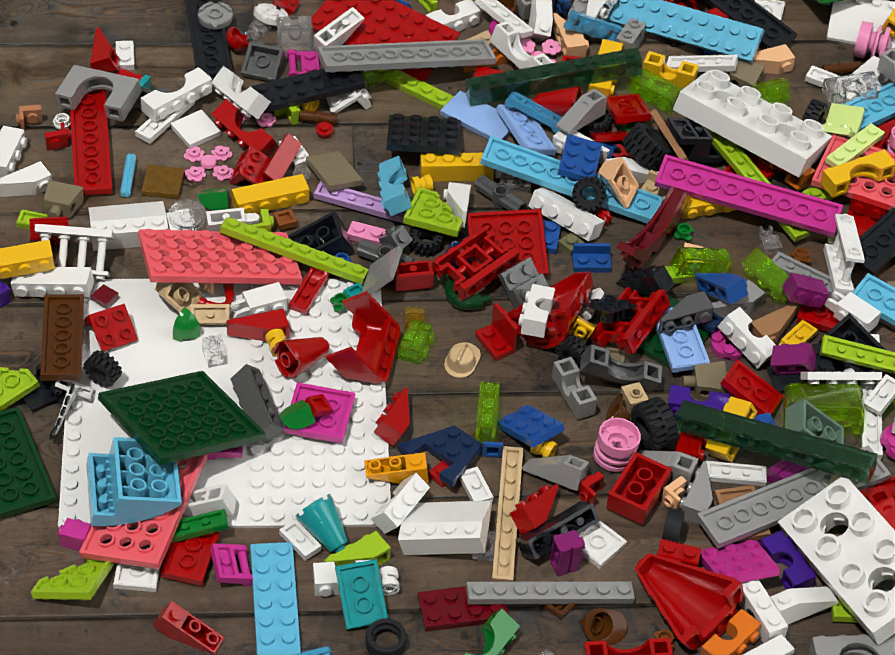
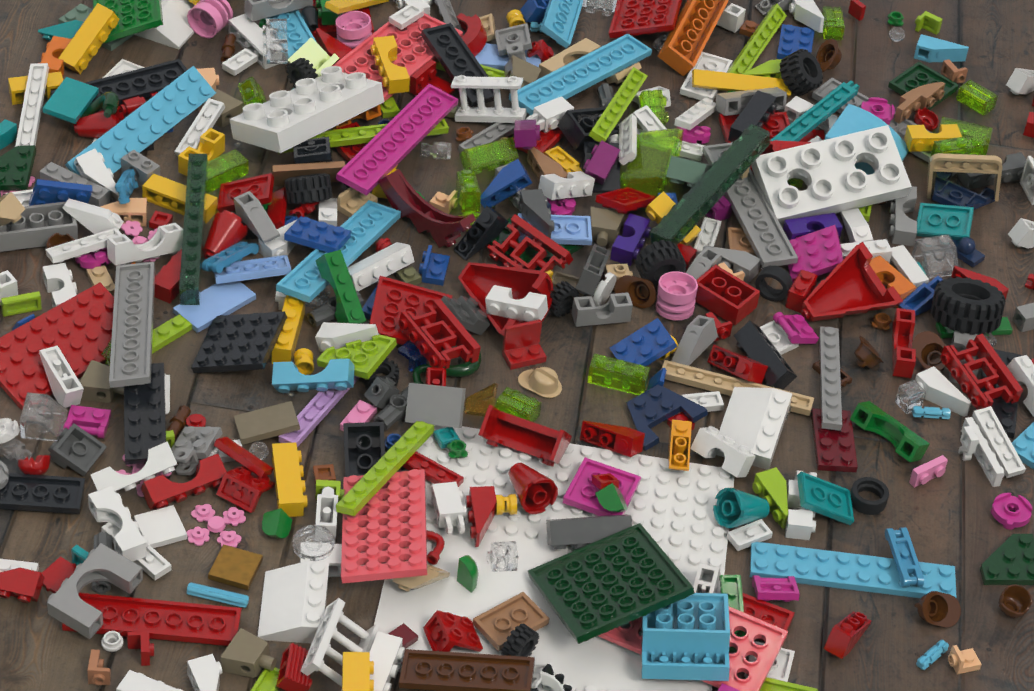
camera: 80 degrees left, 5 degrees down
(139, 363) = (503, 618): none -> medium nougat plate
(210, 313) = (451, 551): tan plate -> none
(299, 129) = (192, 445): none -> light grey plate
(515, 169) = (335, 271): none -> green arch
(566, 553) = (796, 351): magenta brick -> none
(589, 204) = (370, 237): black tyre -> none
(602, 384) = (604, 289): none -> white tile
(612, 308) = (519, 256): black hinge -> none
(617, 564) = (796, 328): none -> dark pink plate
(619, 180) = (355, 216): light nougat slope -> none
(855, 146) = (351, 58): yellowish green plate -> none

